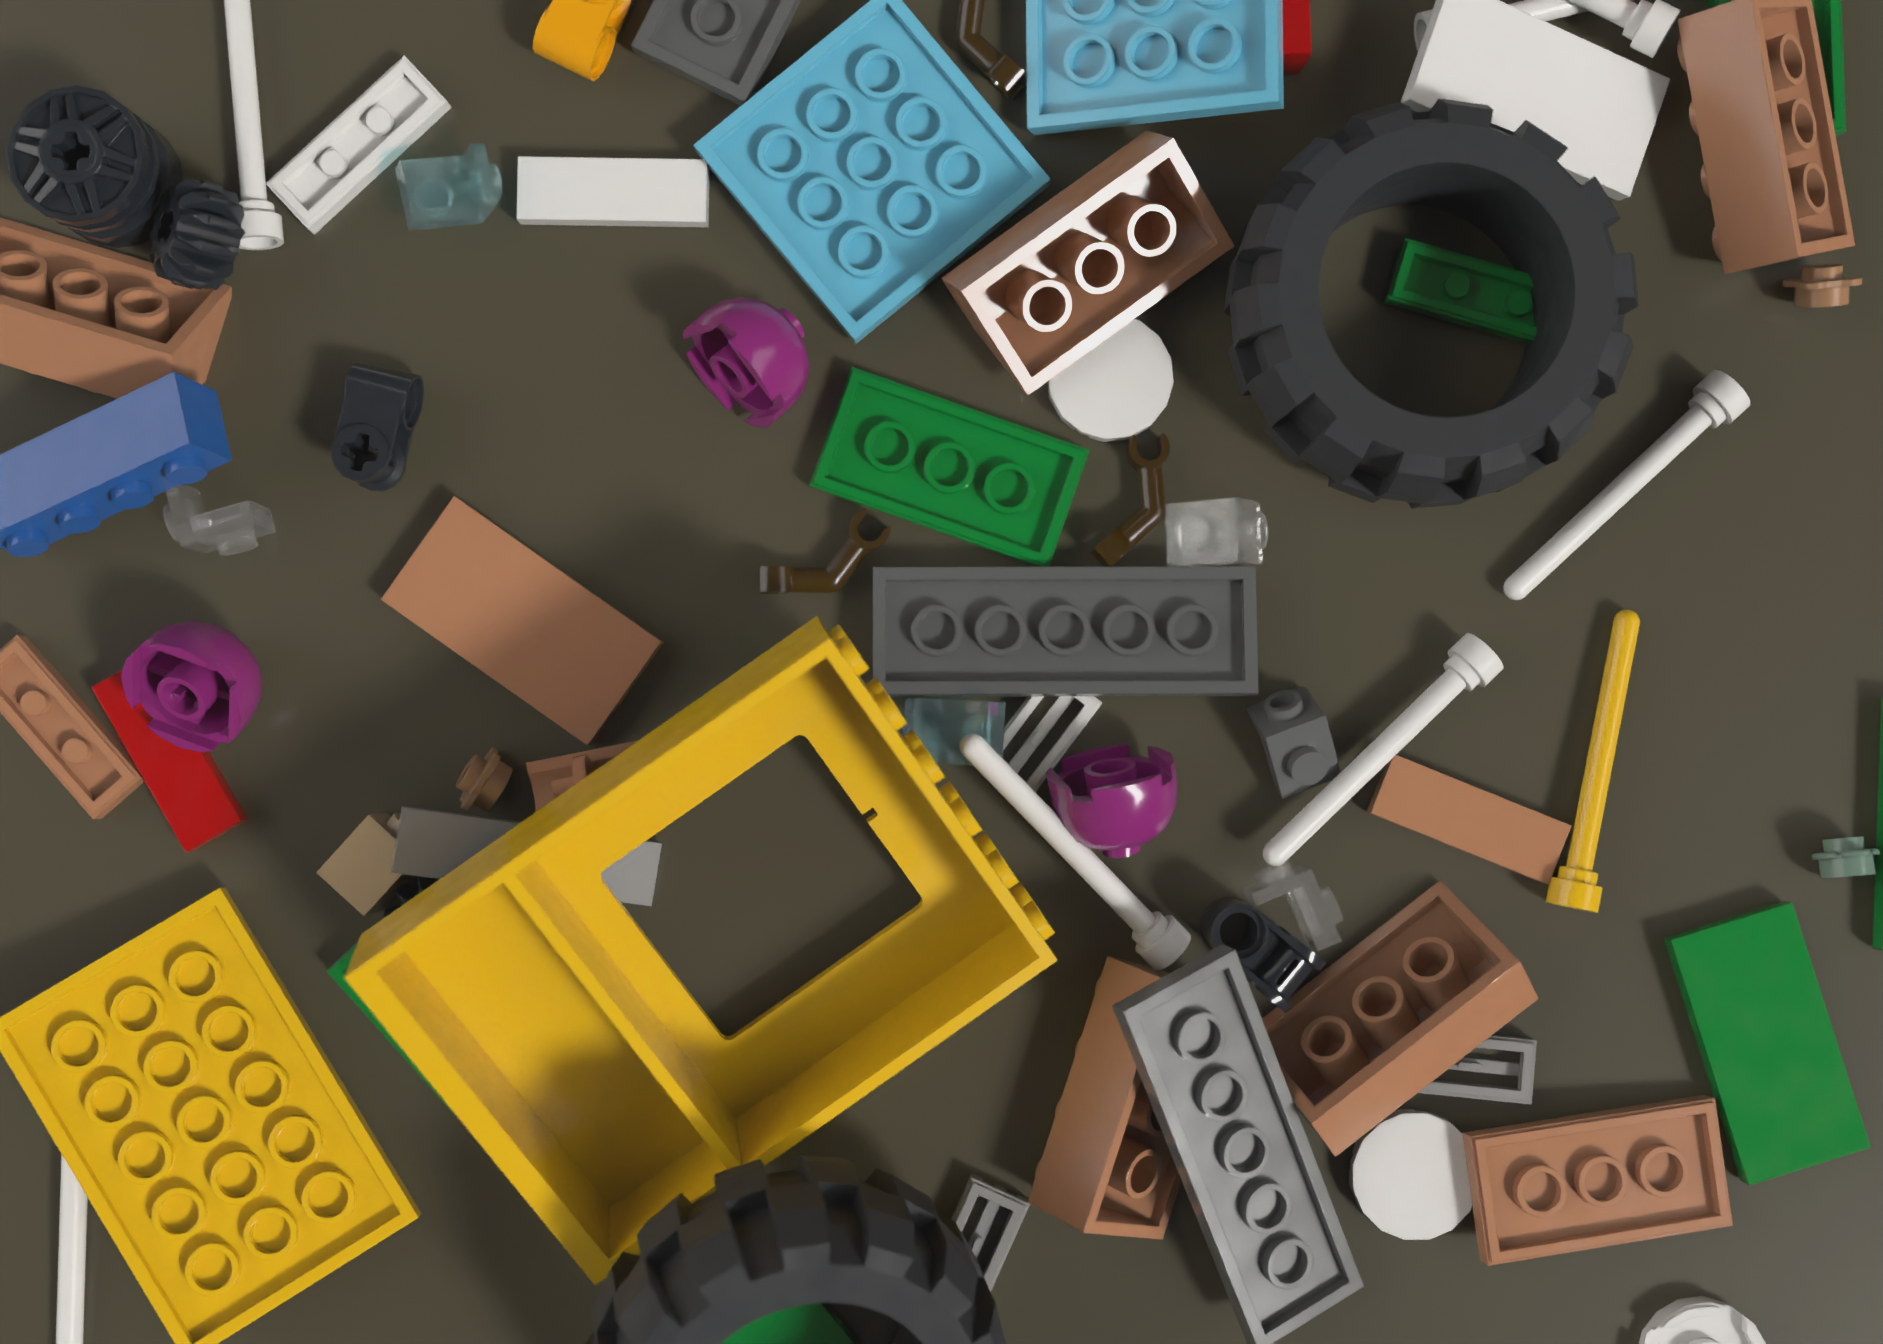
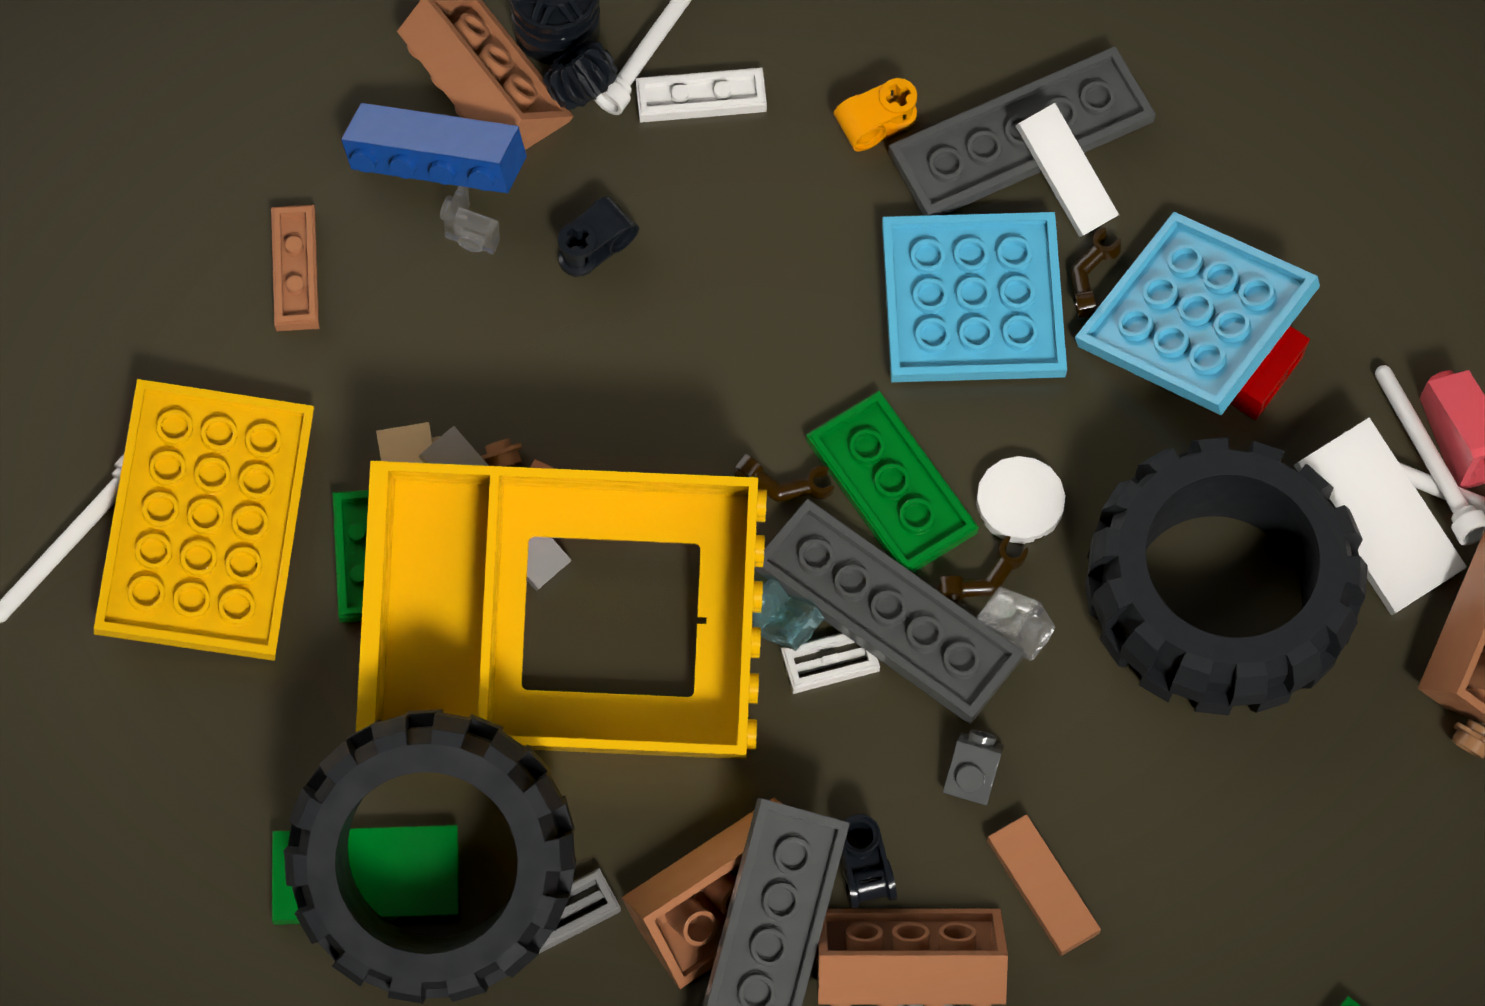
camera: 35 degrees right, 20 degrees down
(181, 780) = (342, 323): red tile -> none
(194, 684) = (391, 291): magenta cylinder -> none
(449, 189) = (731, 148): clear light blue bracket -> none
(522, 621) = (590, 391): nougat tile -> none
(613, 191) = (819, 212): white tile -> none
(750, 356) = (826, 342): magenta cylinder -> none
(1089, 260) = (1054, 426): nougat slope -> none
(1114, 798) = (844, 717): magenta cylinder -> none
(1157, 936) = (799, 716): white piece -> none
(1312, 906) = (914, 862): clear bracket -> none
(1462, 291) = (1255, 589): green tile -> none
(1469, 665) = (1107, 798): white piece -> none
(1576, 882) = (1077, 964): yellow piece -> none
(1714, 402) = (1361, 759): white piece -> none

